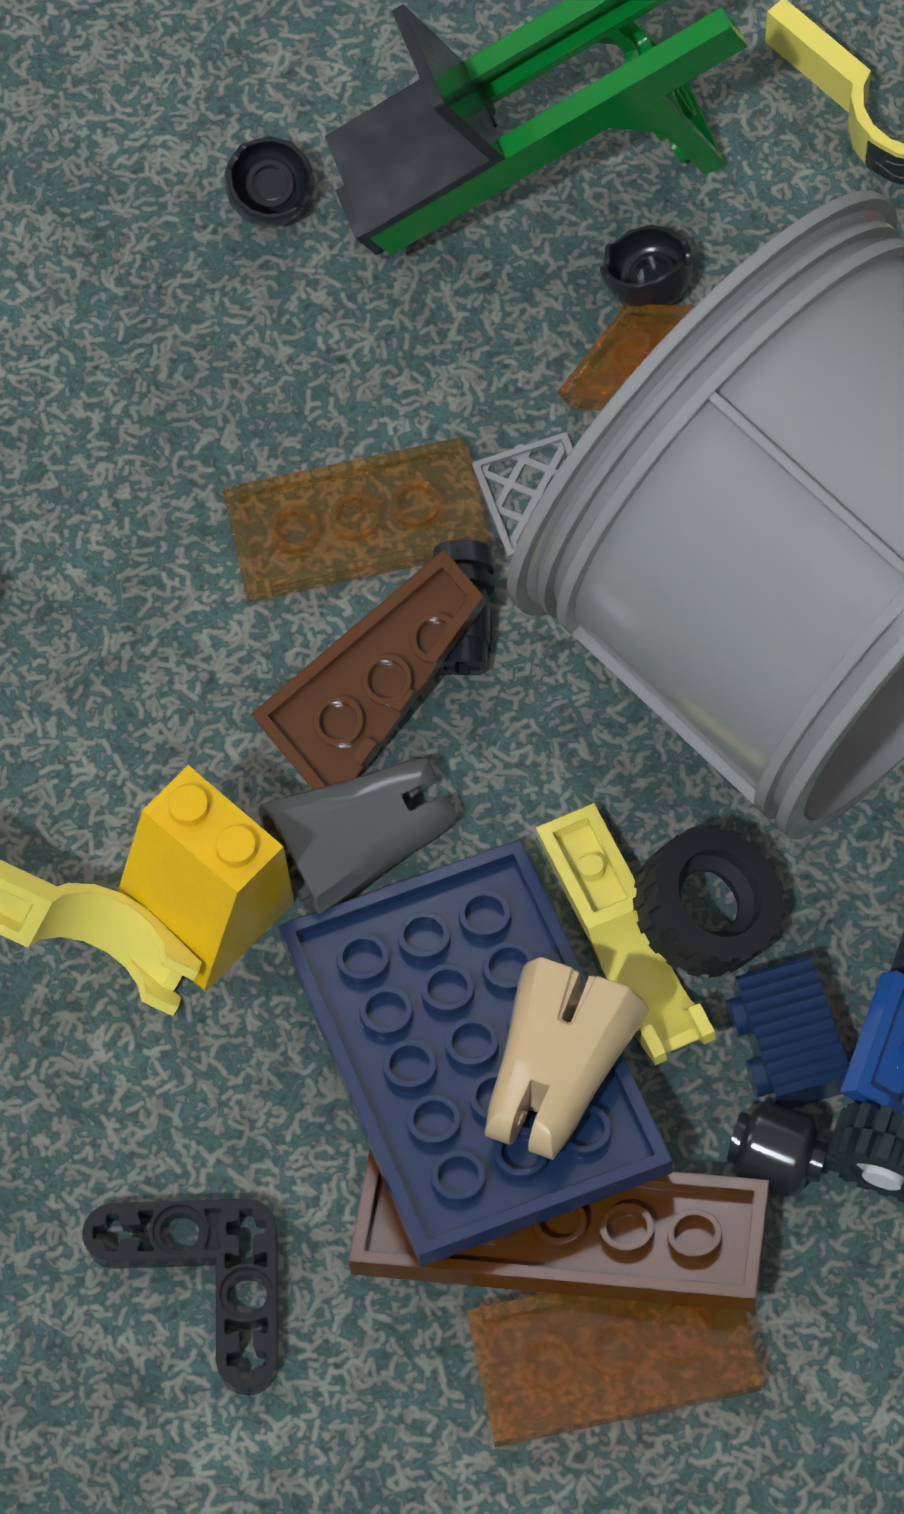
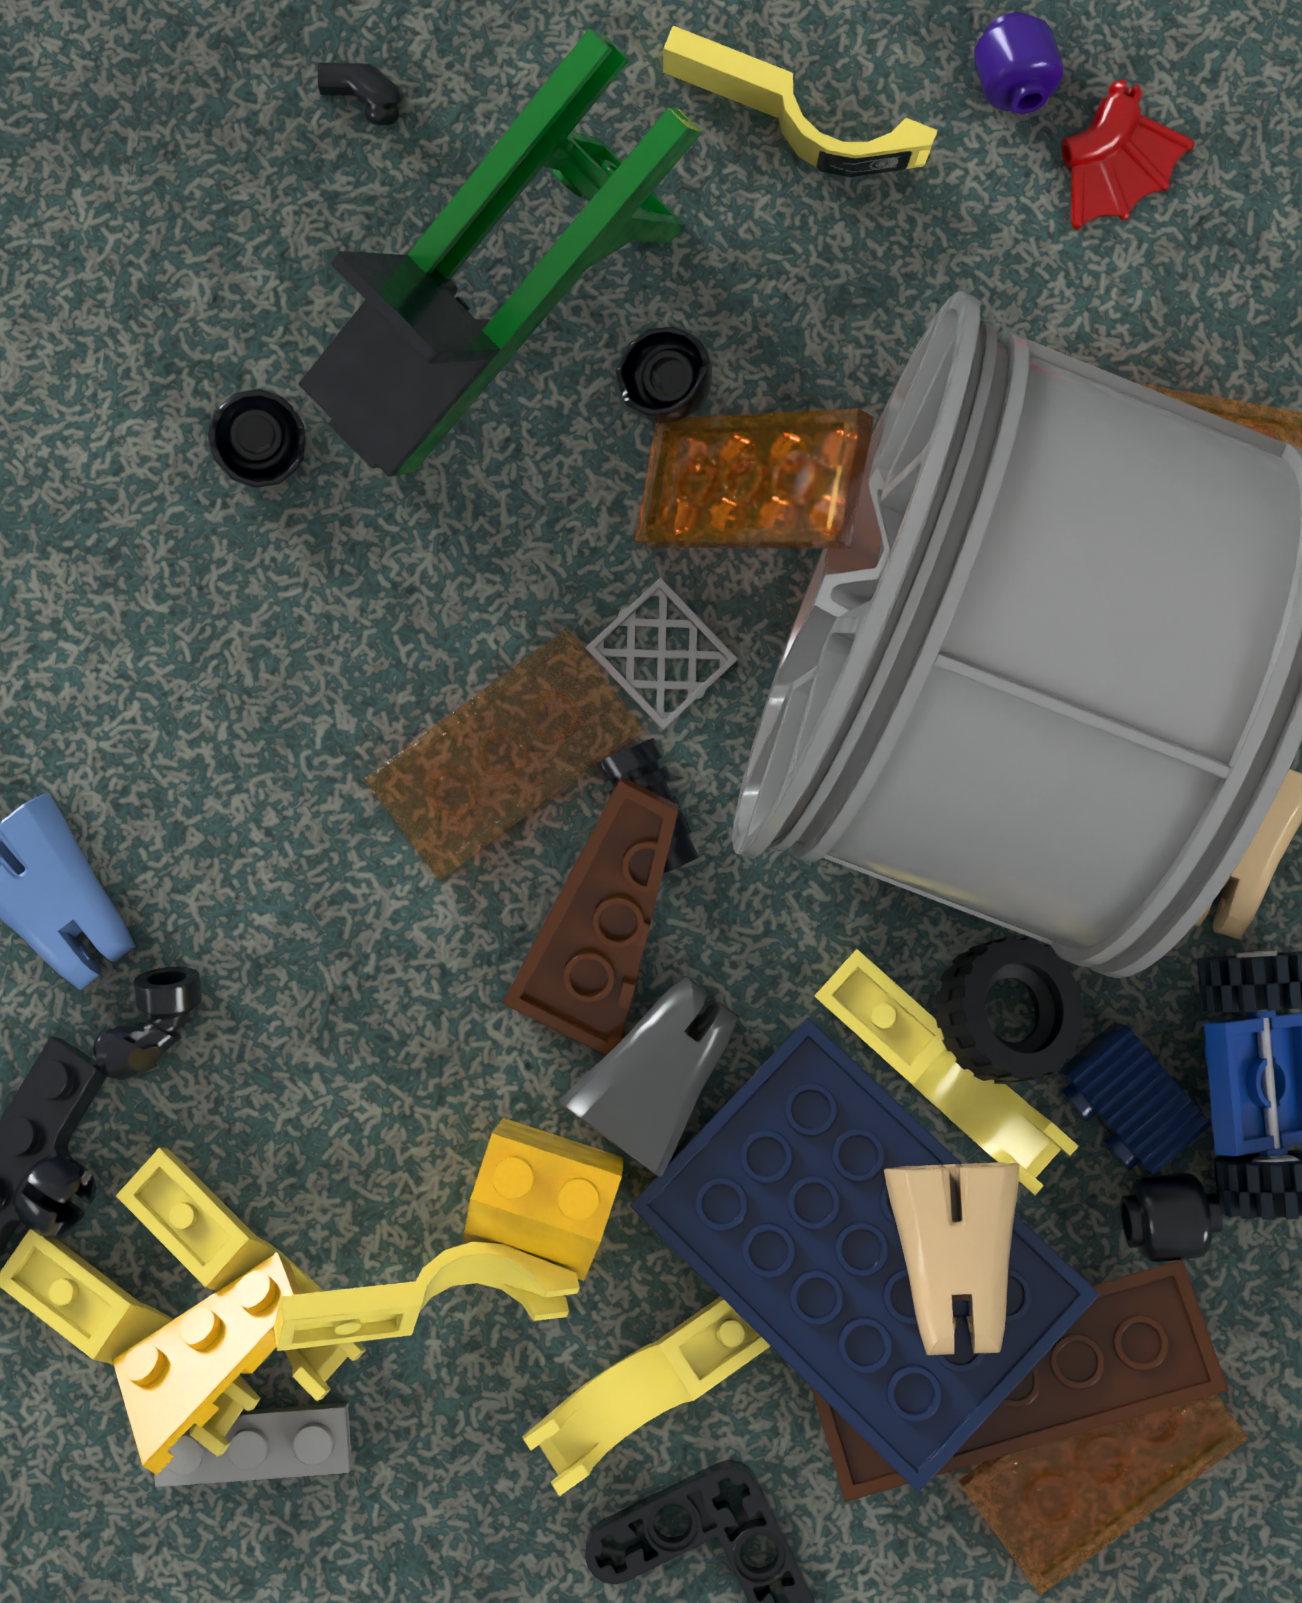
camera: 30 degrees left, 20 degrees up
(217, 1103) = (641, 1388): none -> light yellow piece

